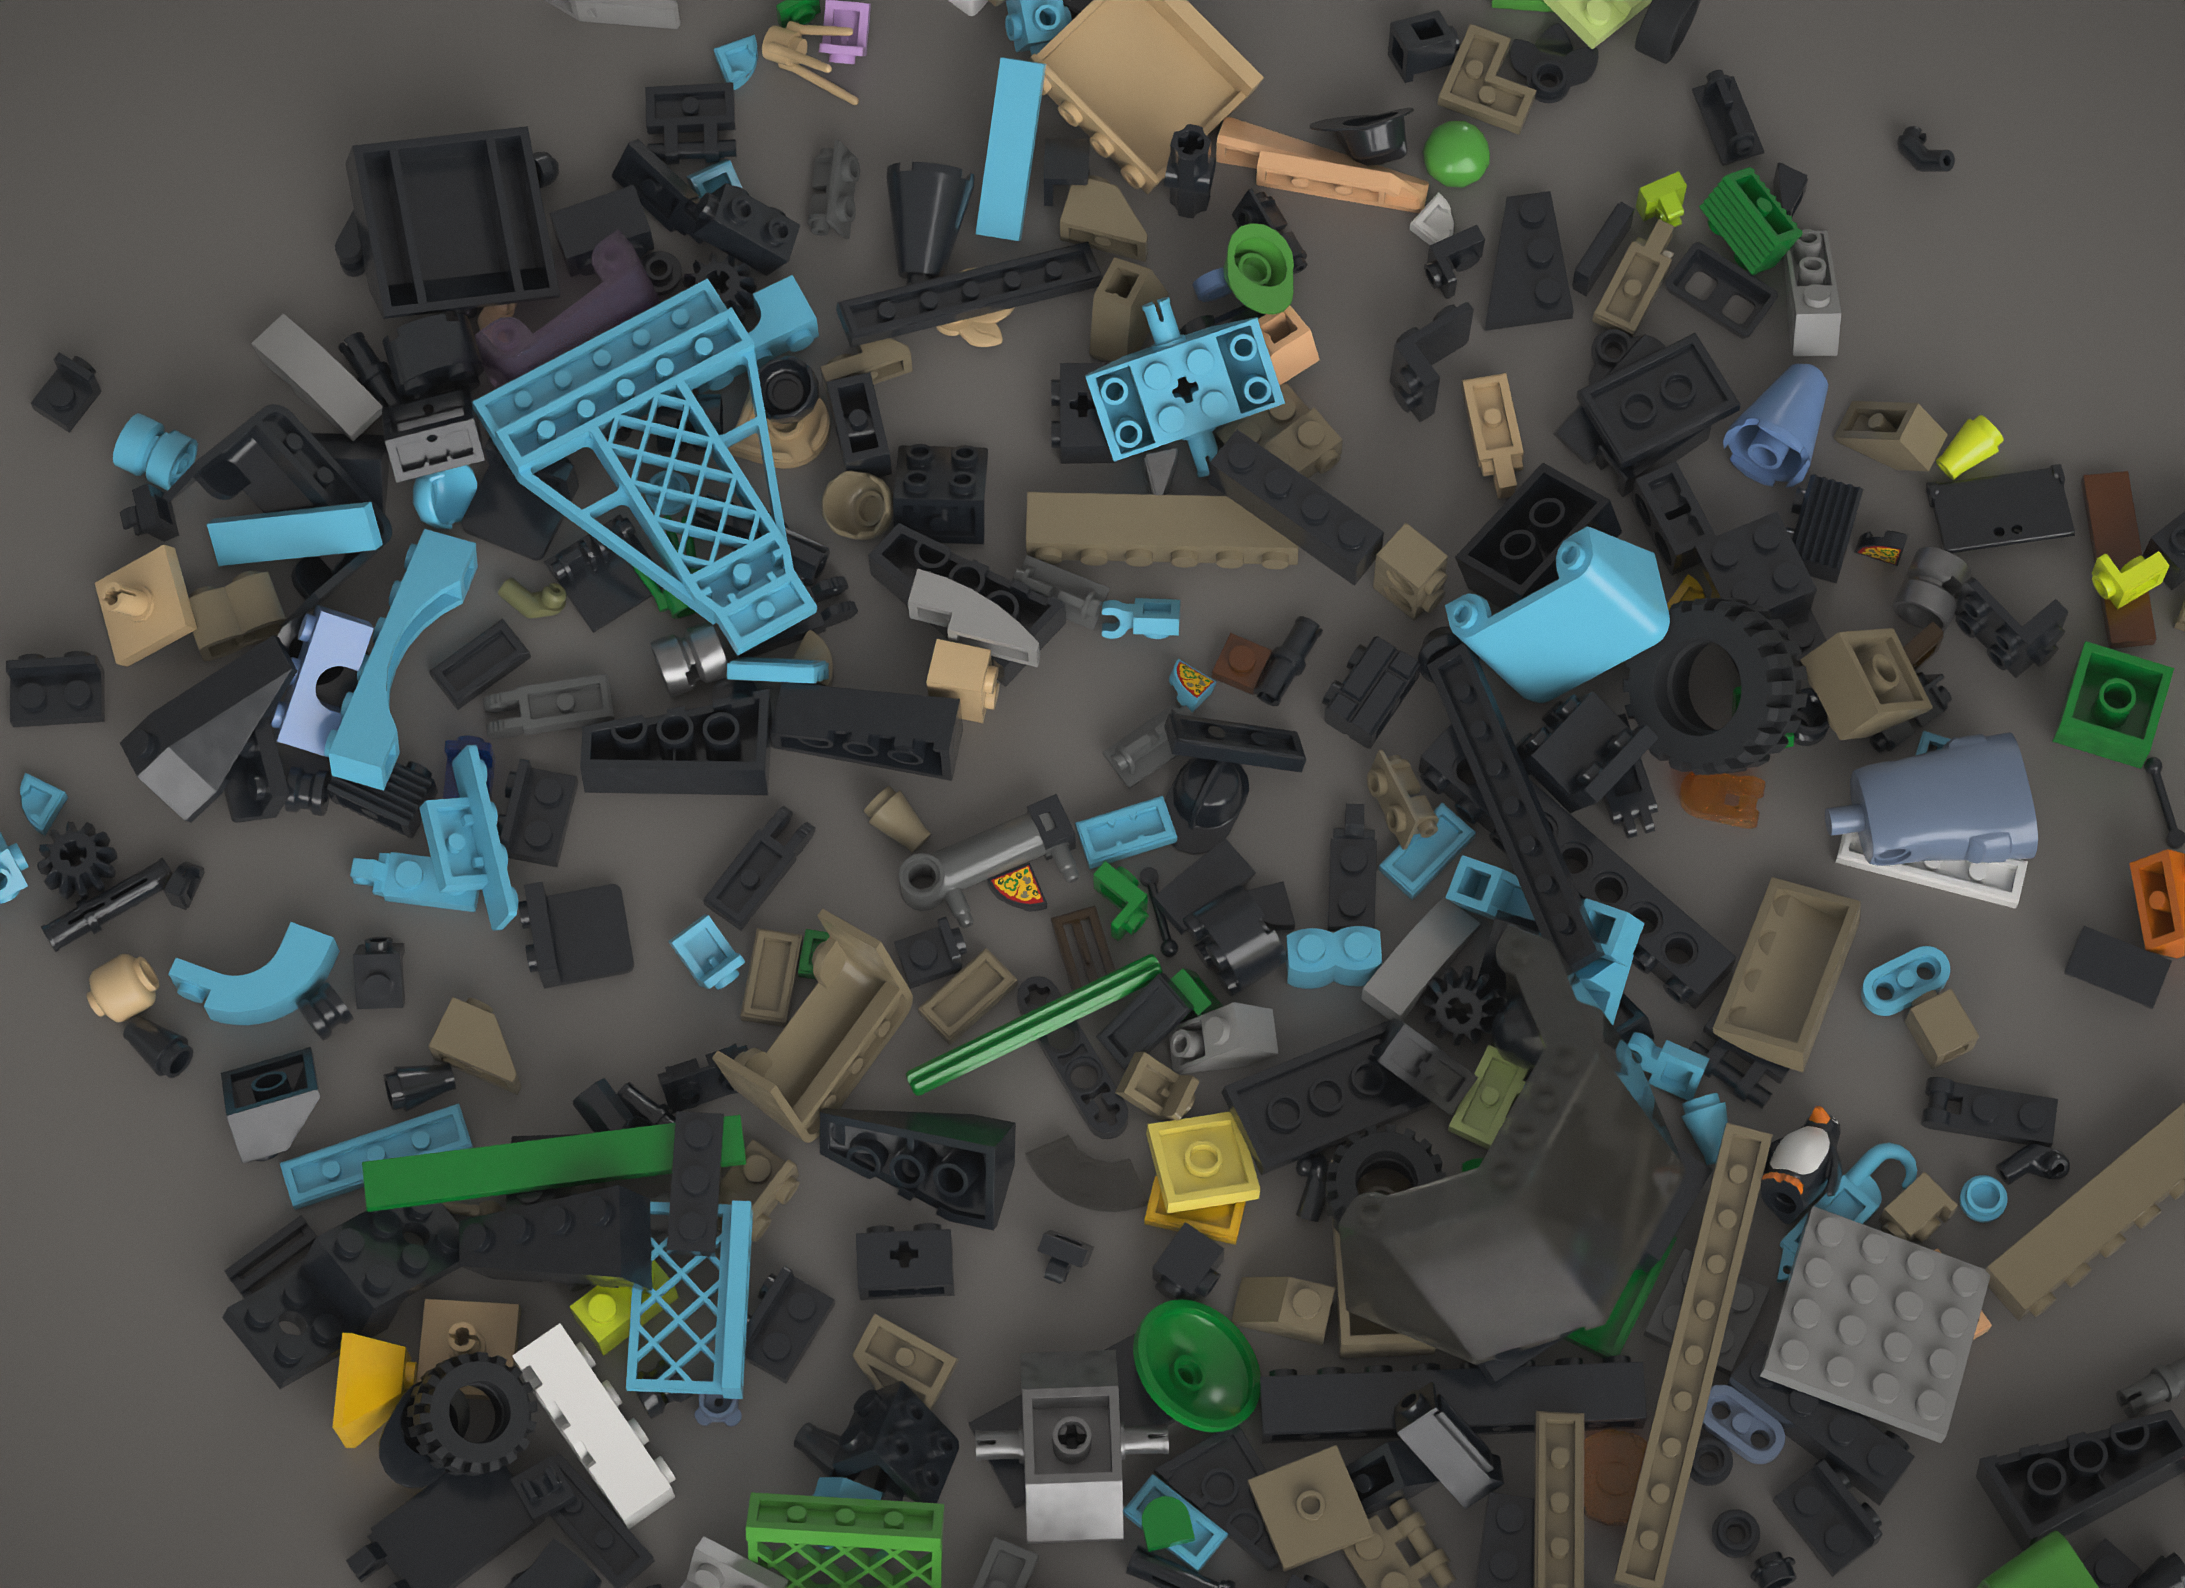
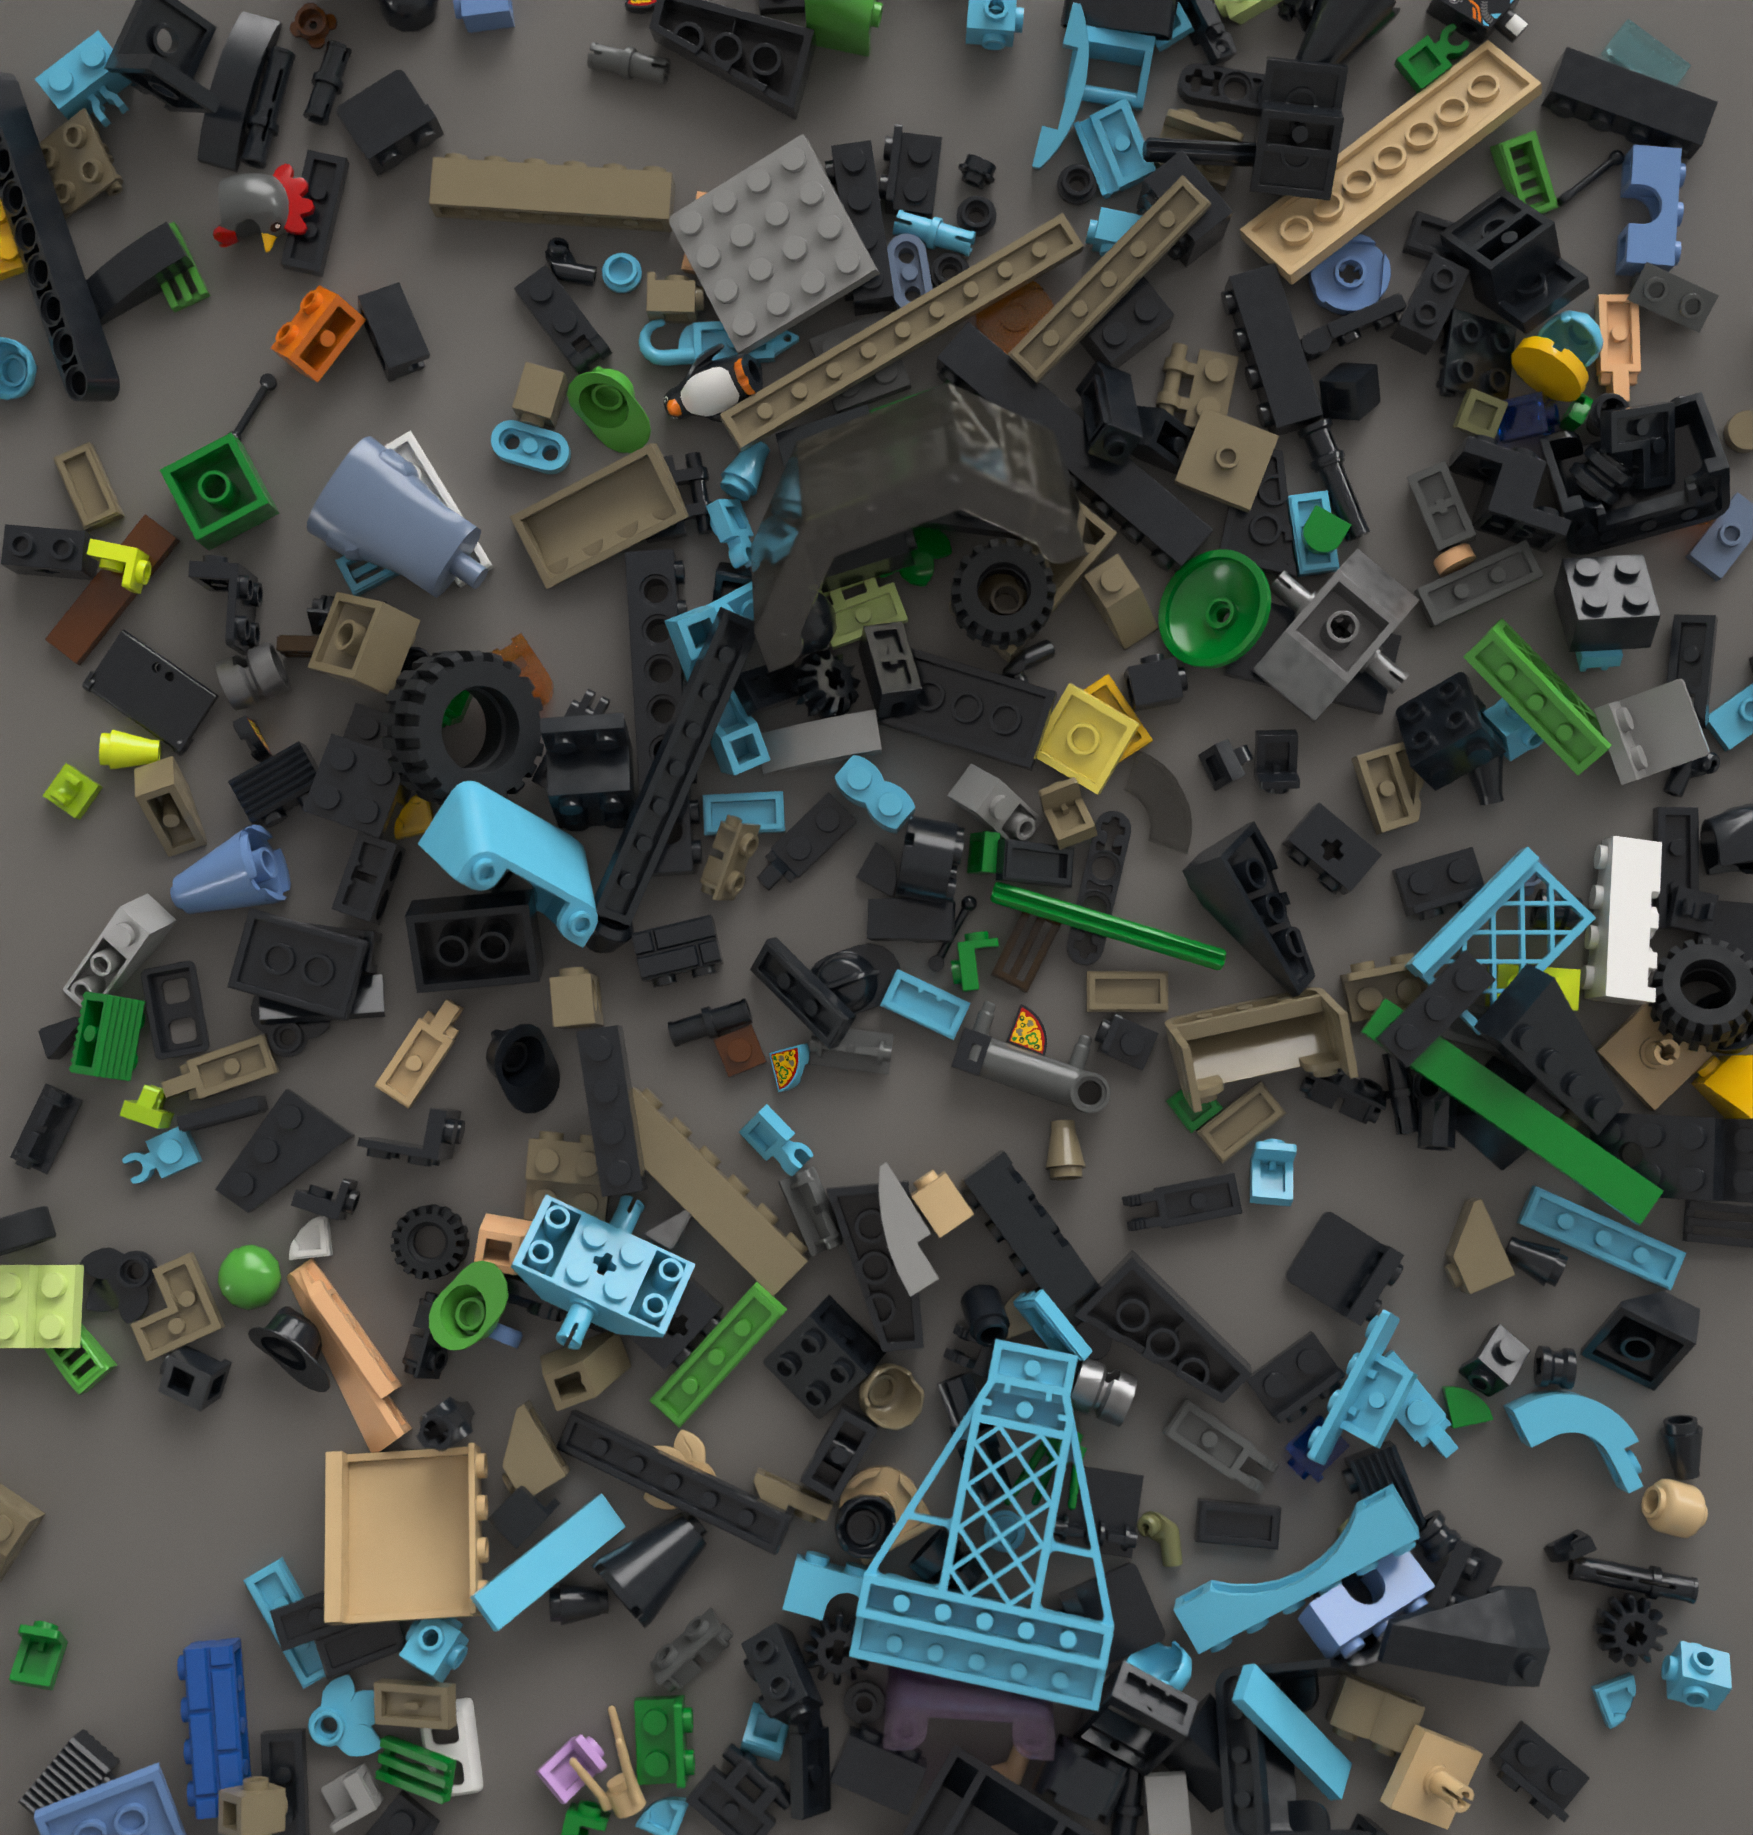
camera: 135 degrees left, 15 degrees up
(372, 917) = (1465, 1407): none -> green tile
(793, 112) = (662, 1740): none -> green bracket
(841, 632) = (985, 1314): none -> black brick
(961, 143) = (576, 1603): none -> black cone
(1021, 1294) = (1276, 760): none -> black bracket
(1028, 416) = (718, 1354): none -> bright green tile
(1345, 277) = (405, 1246): none -> black tyre
(1401, 489) = (523, 1067): none -> black piece
(1615, 182) = (168, 1154): none -> medium azure plate
(1755, 1481) = (935, 232): none -> medium azure pin
(1875, 1072) = (609, 409): none -> bright green piece
(1980, 380) = (72, 791): none -> lime tile

